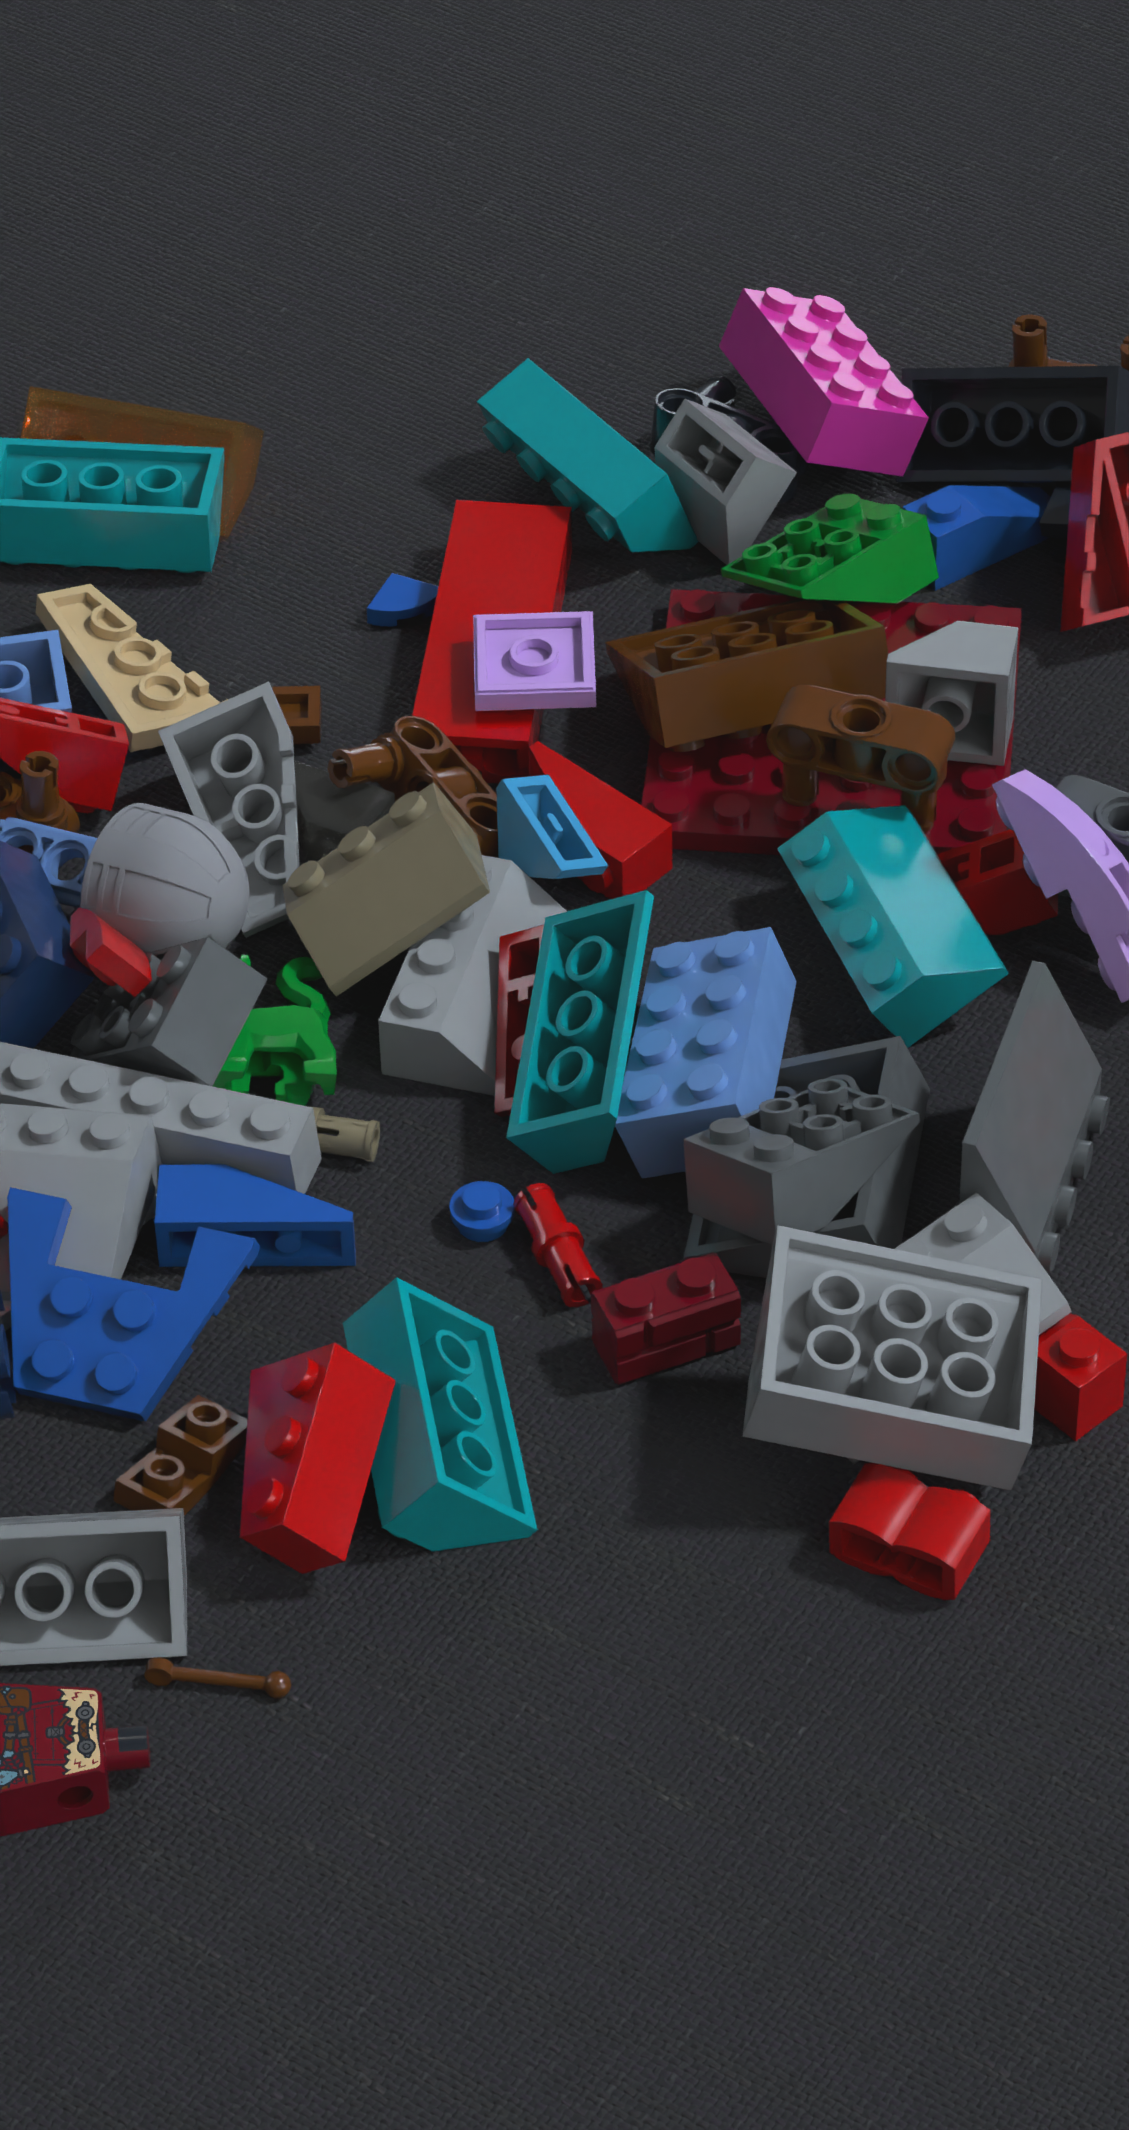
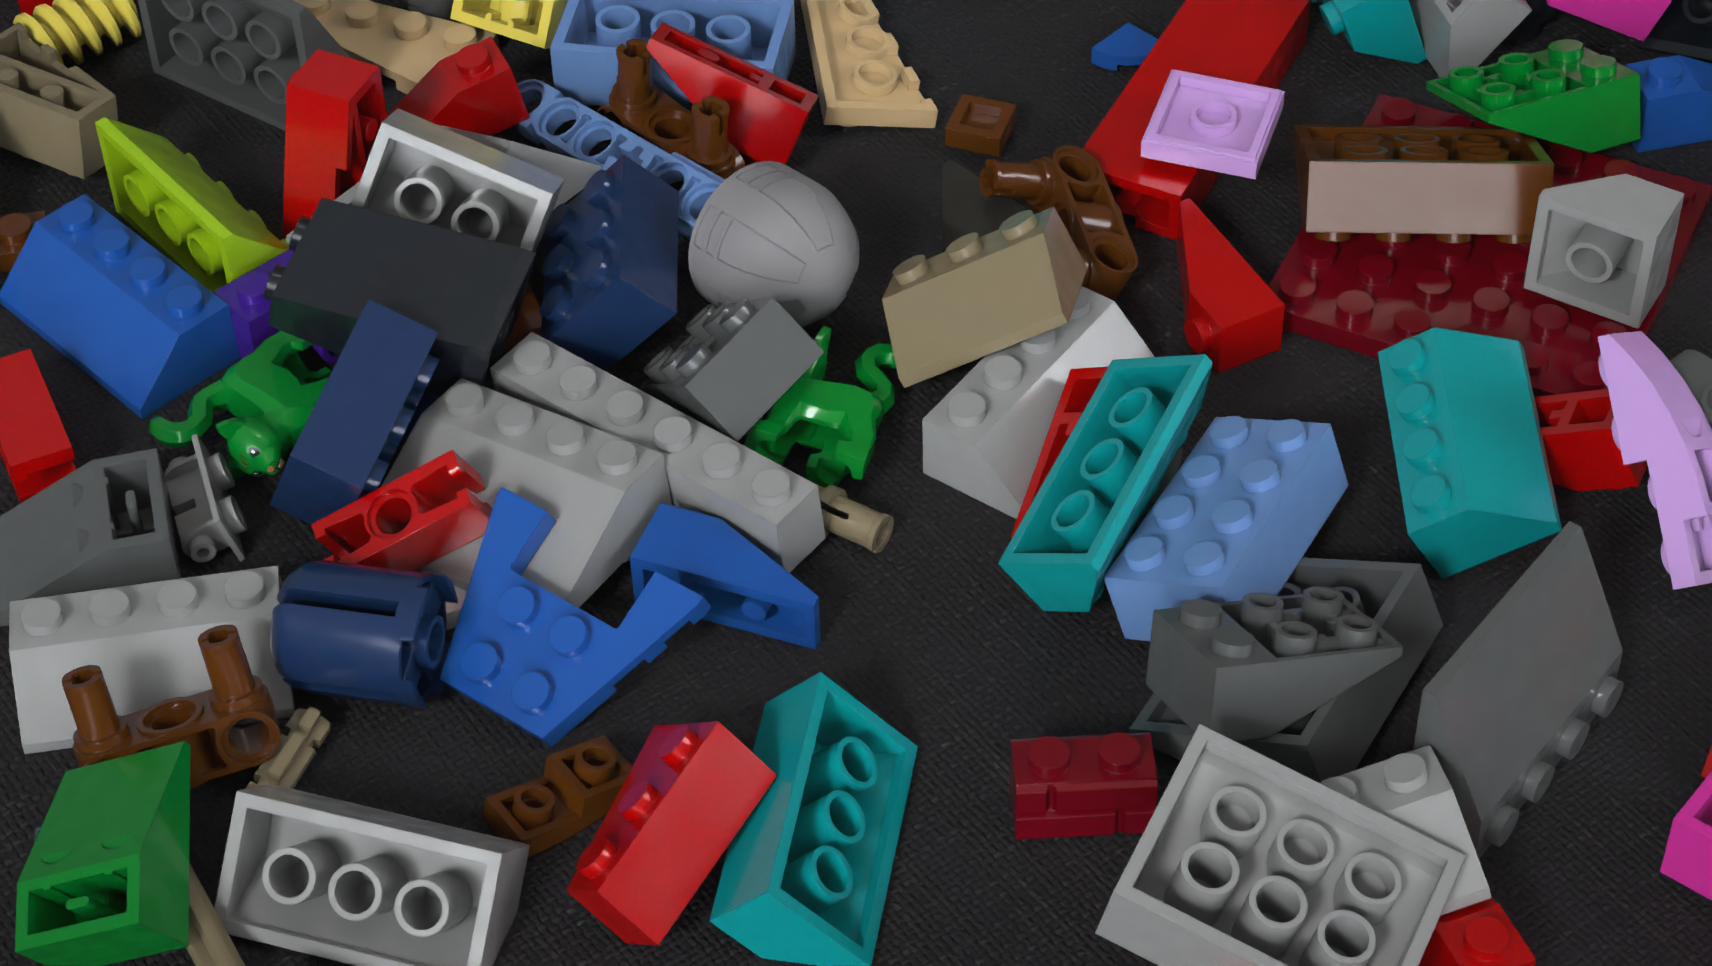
camera: 20 degrees right, 0 degrees up
(108, 952) = (690, 292): red slope -> none
(241, 780) = (894, 181): light grey wedge -> none
(482, 1210) = (955, 628): blue plate -> none
(542, 831) = (1156, 280): dark azure slope -> none
(557, 1244) = (1011, 680): red pin -> none
(861, 743) = (1492, 269): reddish brown piece -> none

